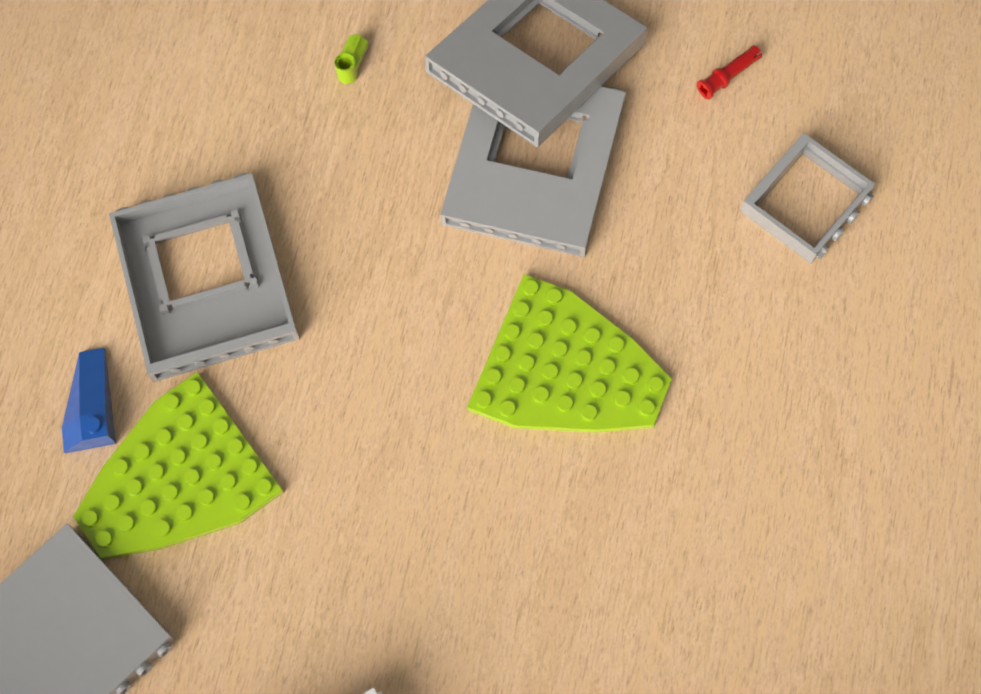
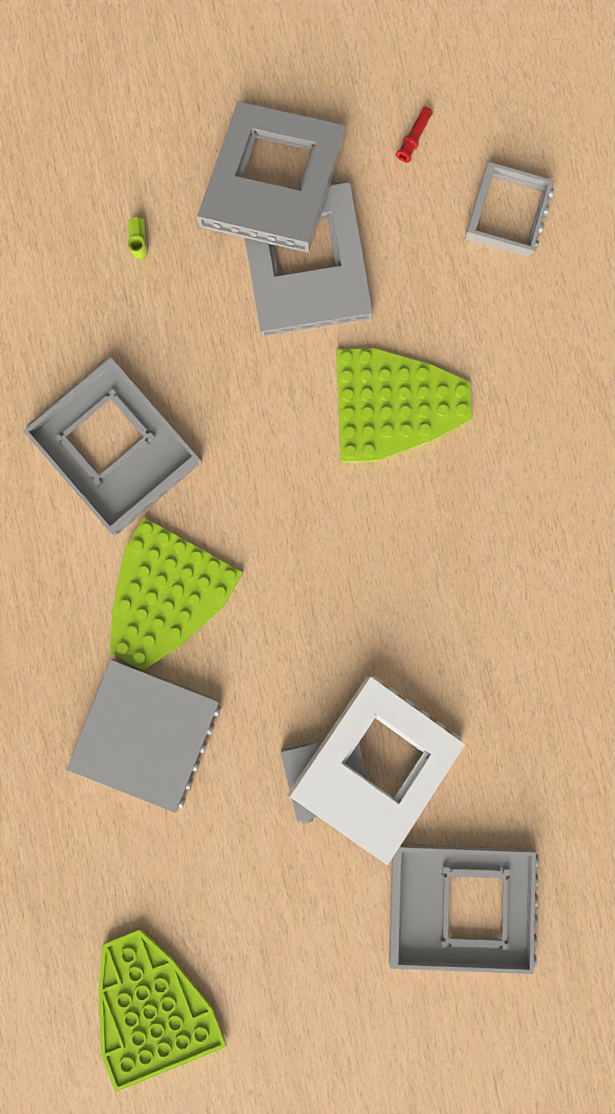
camera: 25 degrees left, 15 degrees up
(89, 412) = (80, 574): blue wedge -> none

